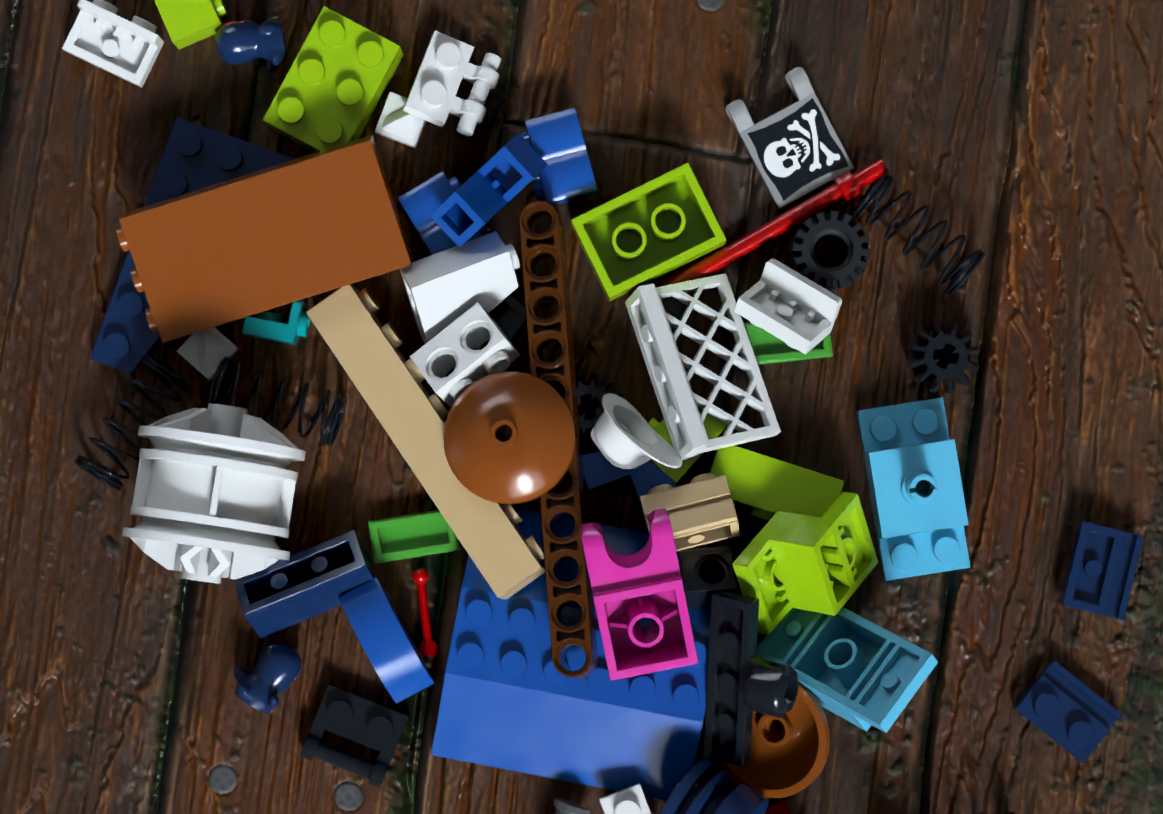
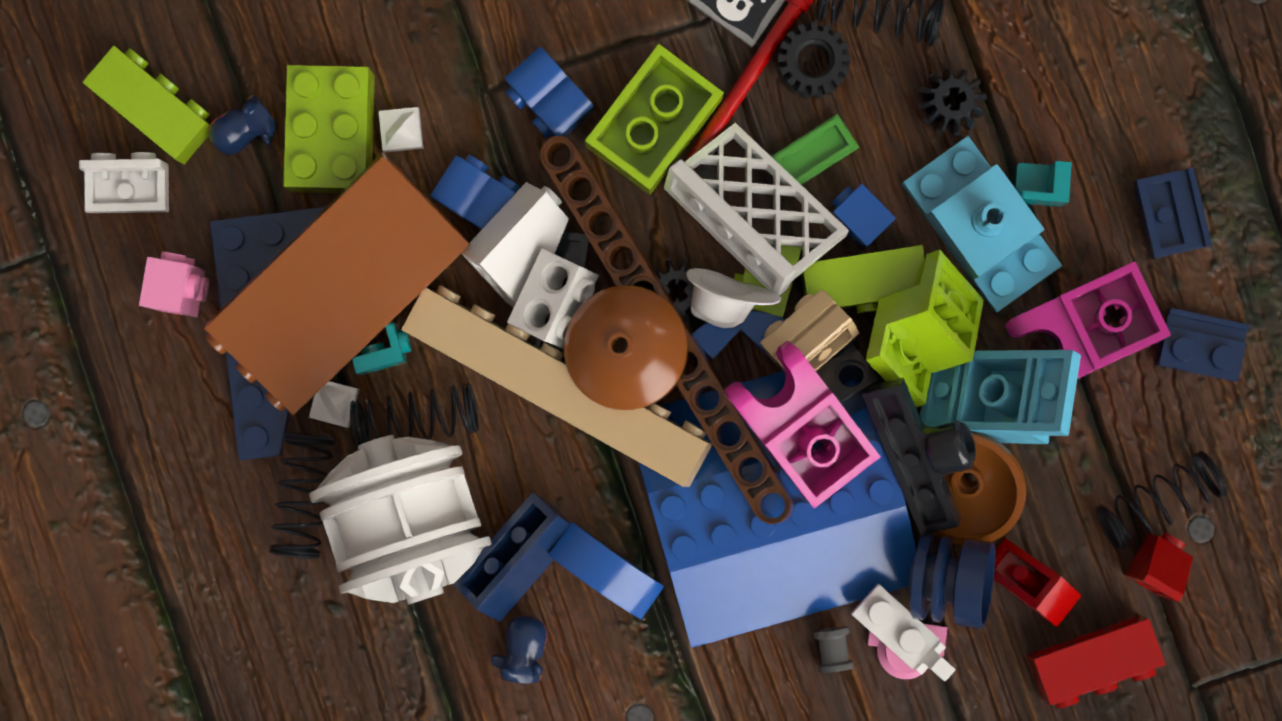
camera: 25 degrees left, 0 degrees up
(111, 161) = (173, 285): none -> bright pink brick
(361, 722) = (618, 649): black plate -> none
(411, 536) = (583, 473): bright green tile -> none
(428, 647) = (643, 558): red hinge -> none
(439, 79) = (415, 80): white plate -> none
(488, 190) = (503, 150): blue brick -> none
(790, 307) = (804, 122): white bracket -> none
(801, 422) = (861, 215): none -> blue brick
(956, 632) = (1078, 321): none -> dark pink brick
(991, 479) = (1044, 183): none -> teal panel

